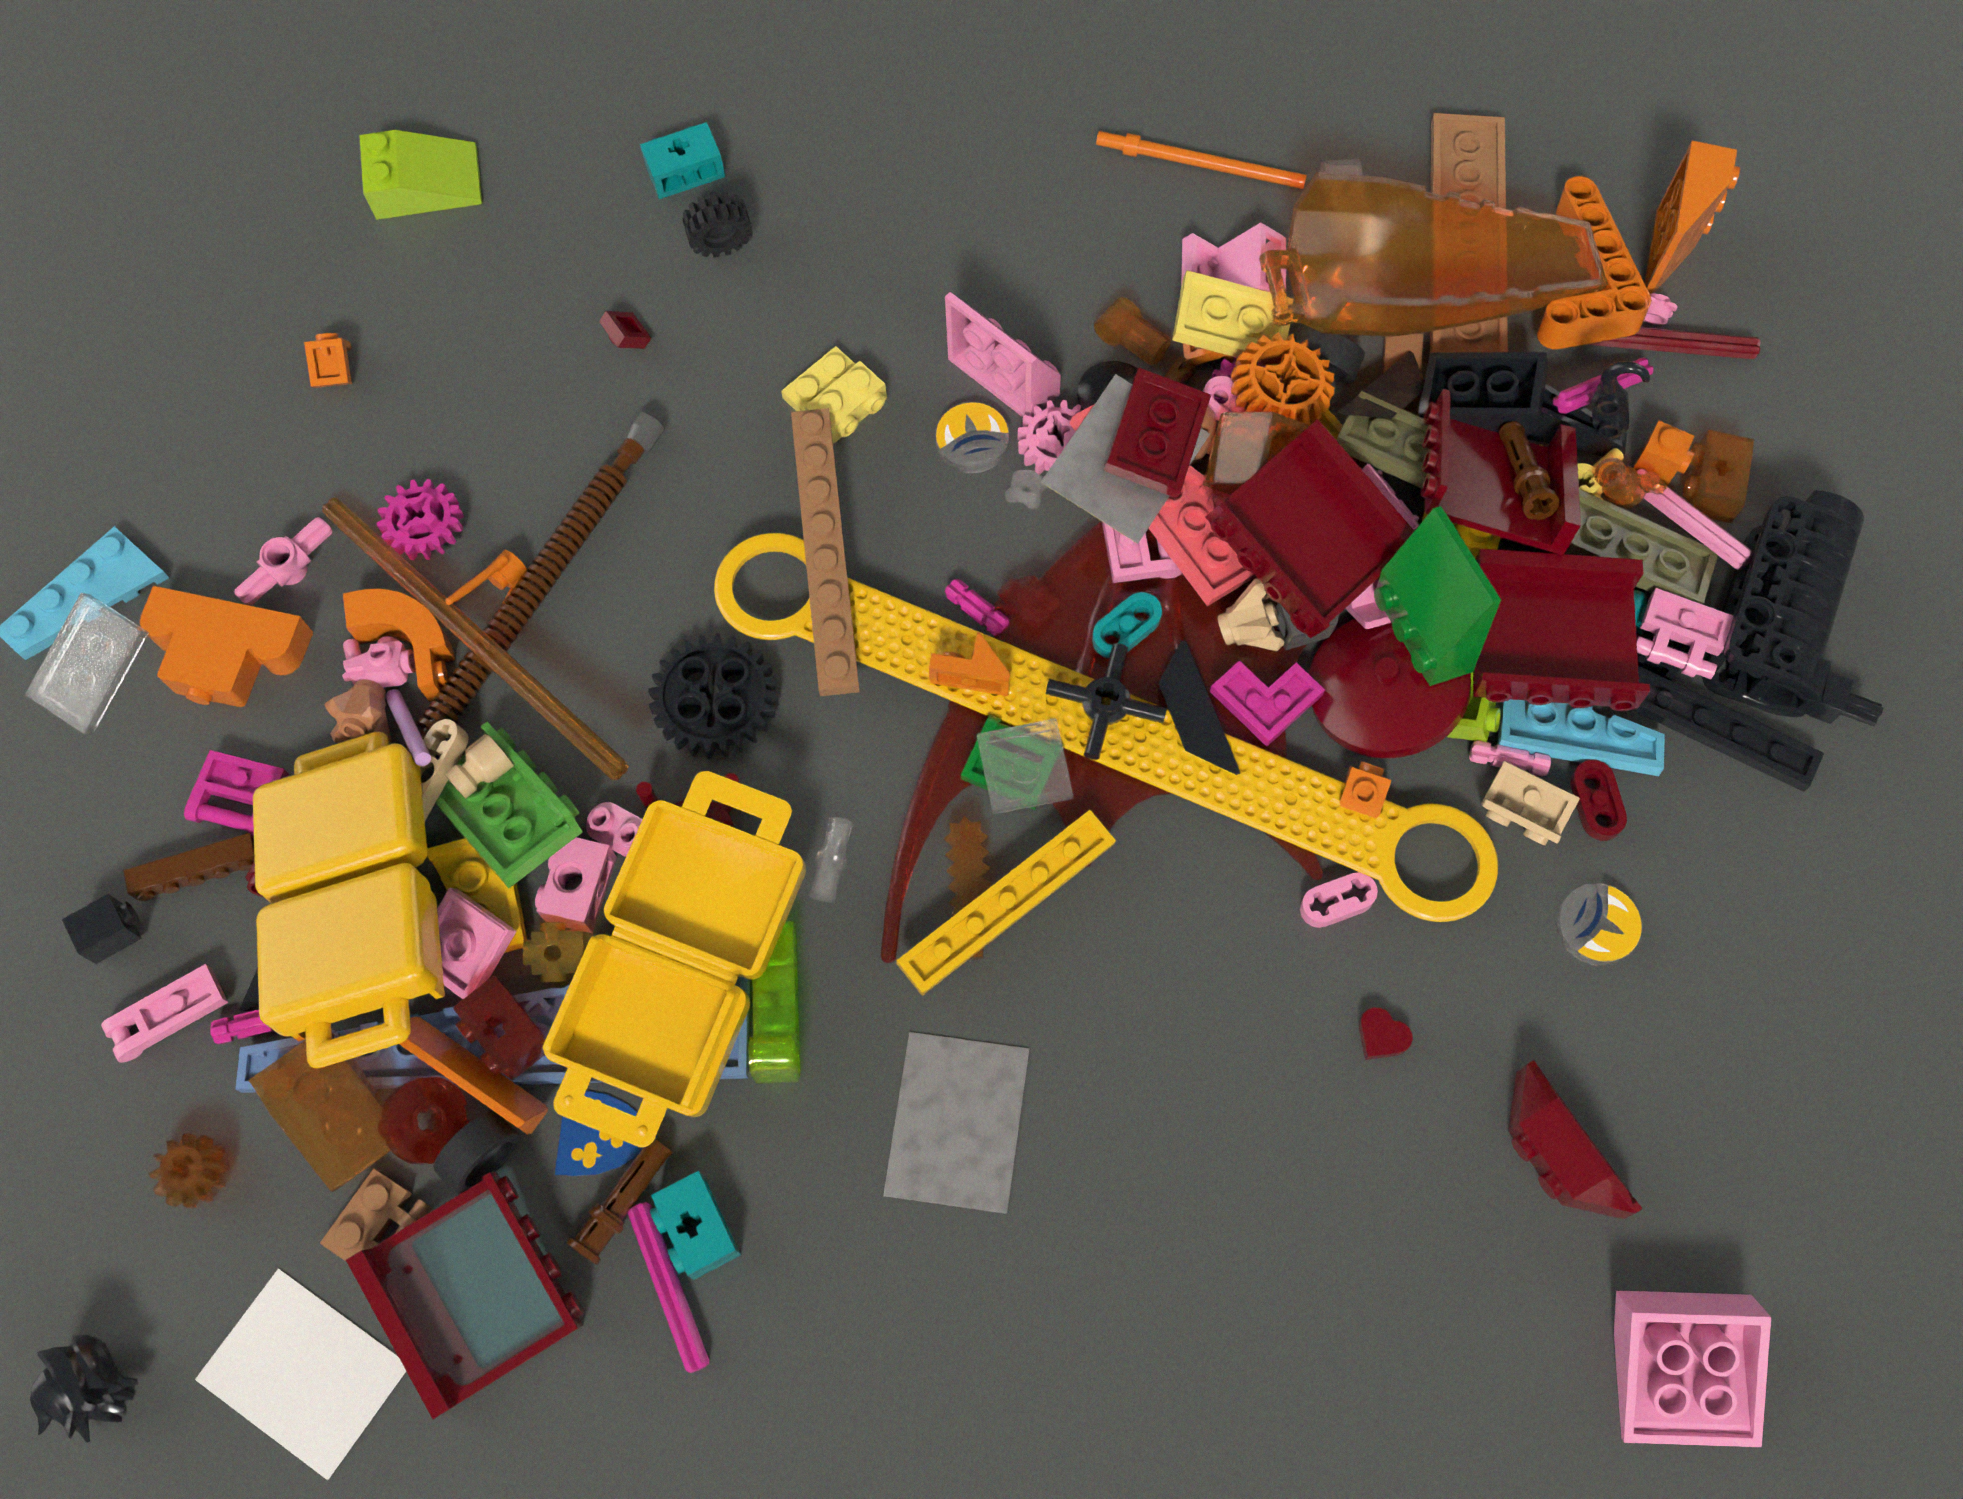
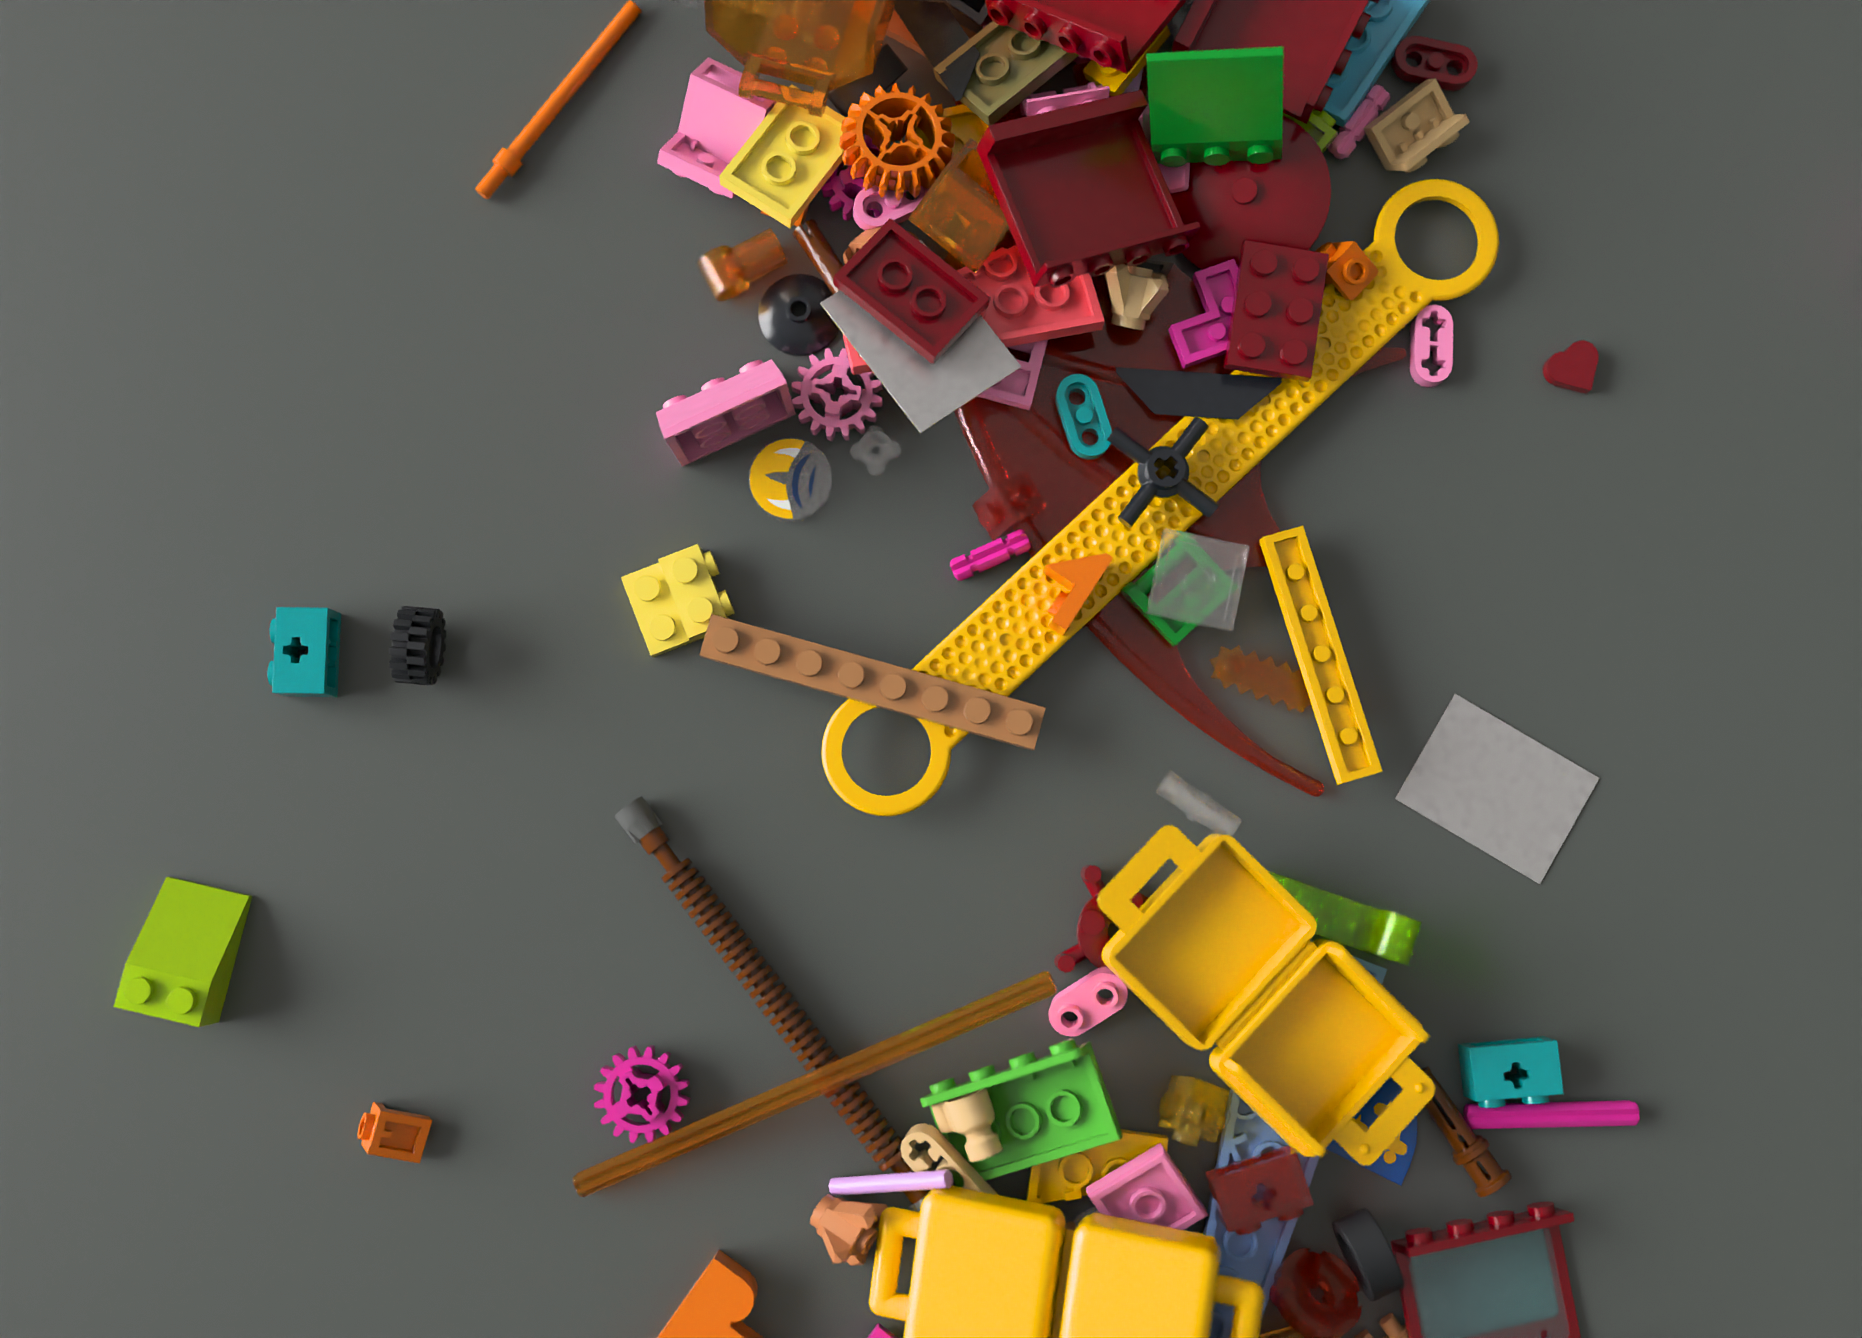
camera: 70 degrees left, 15 degrees up
(277, 550) = (637, 1278): bright pink axle -> none
(383, 663) = (801, 1186): bright pink piece -> none
(389, 613) = (740, 1166): orange arch -> none
(474, 1076) = (1284, 1242): orange slope -> none
(502, 573) = (741, 1026): orange plant -> none
(581, 905) = (1151, 1073): bright pink brick -> none
(625, 330) = (501, 794): dark red plate -> none
(749, 695) = (994, 820): black gear -> none
(1294, 738) = (1276, 311): none -> dark red plate
(1562, 1150) = (1738, 262): dark red wedge -> none
(1599, 924) = (1548, 124): tile -> none

